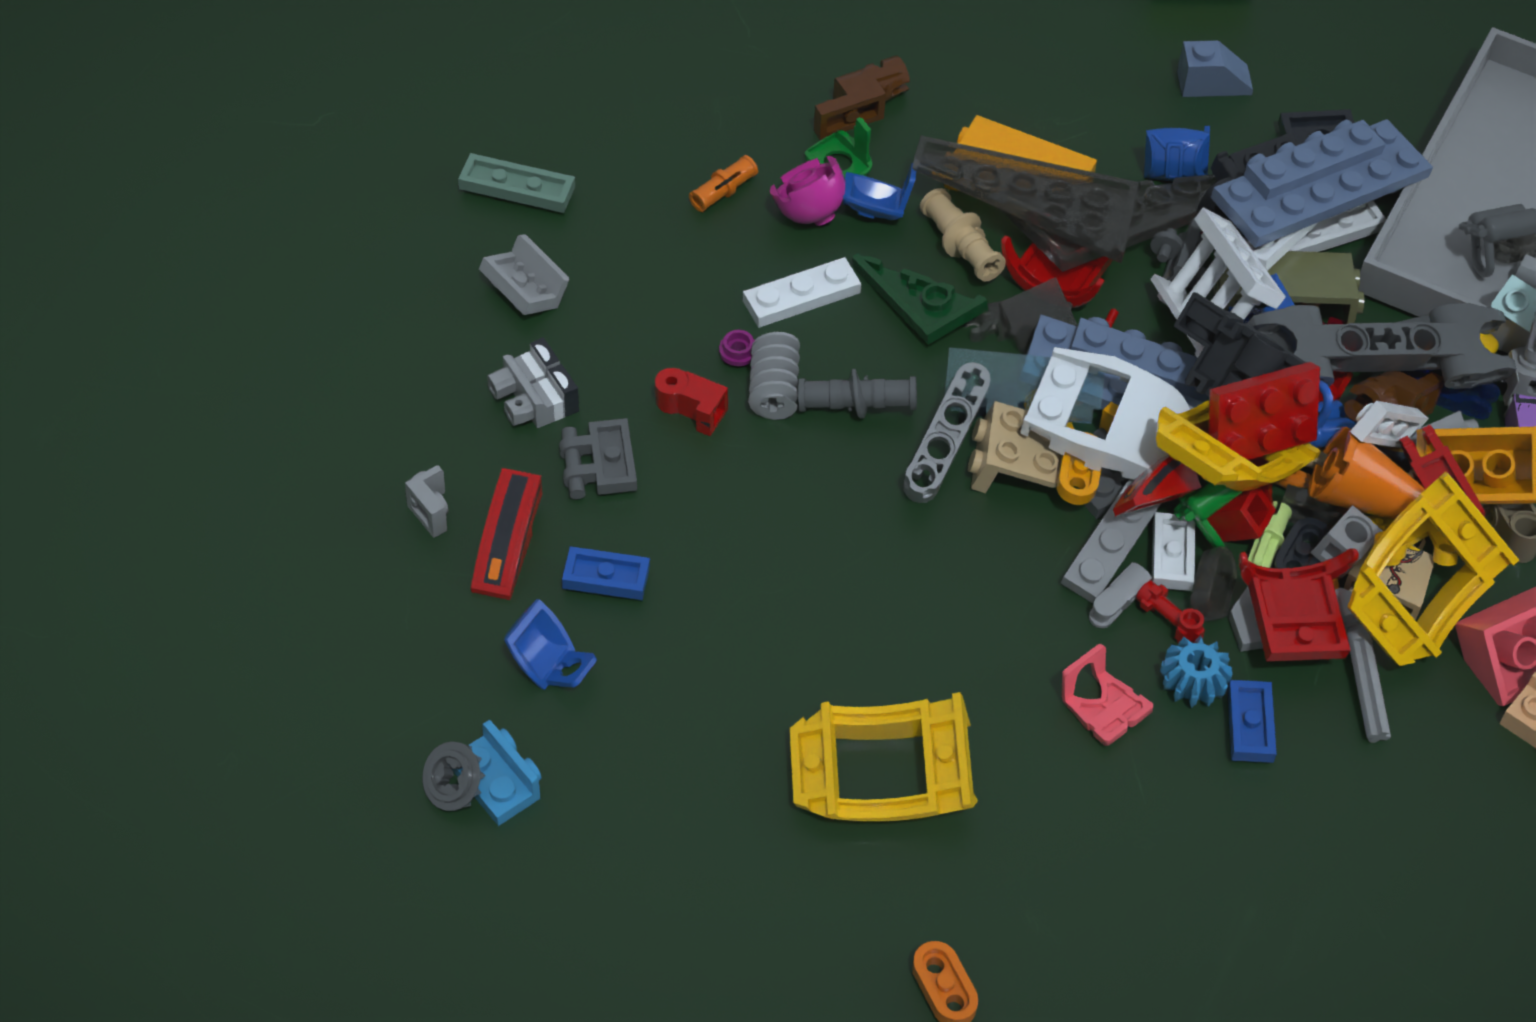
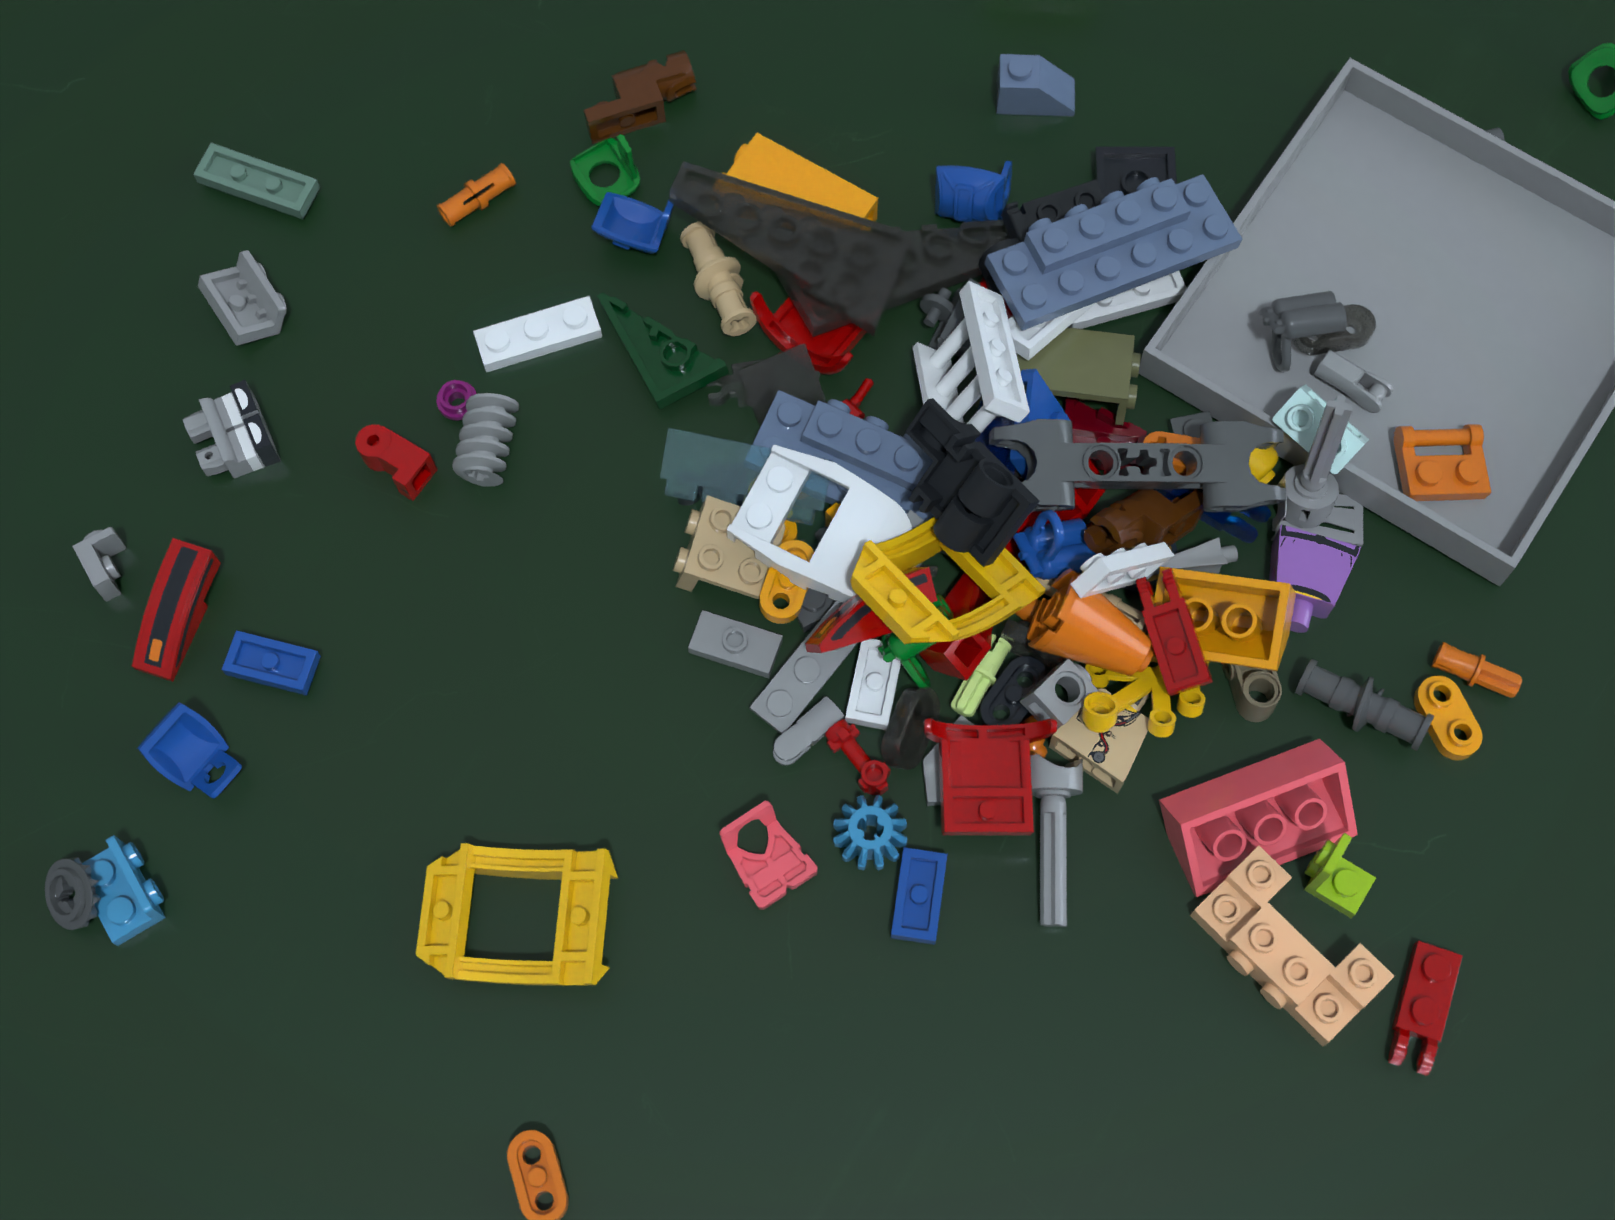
camera: 10 degrees right, 15 degrees up
(611, 455) = (299, 524): dark grey plate -> none
(811, 192) = (561, 217): dark pink cylinder -> none
(857, 393) = (570, 468): dark grey piece -> none
(944, 431) = (647, 522): light grey beam -> none
(1037, 530) = (735, 644): none -> light grey plate
(1267, 411) = (980, 554): red plate -> none
(1472, 540) = (1180, 707): yellow wedge -> none

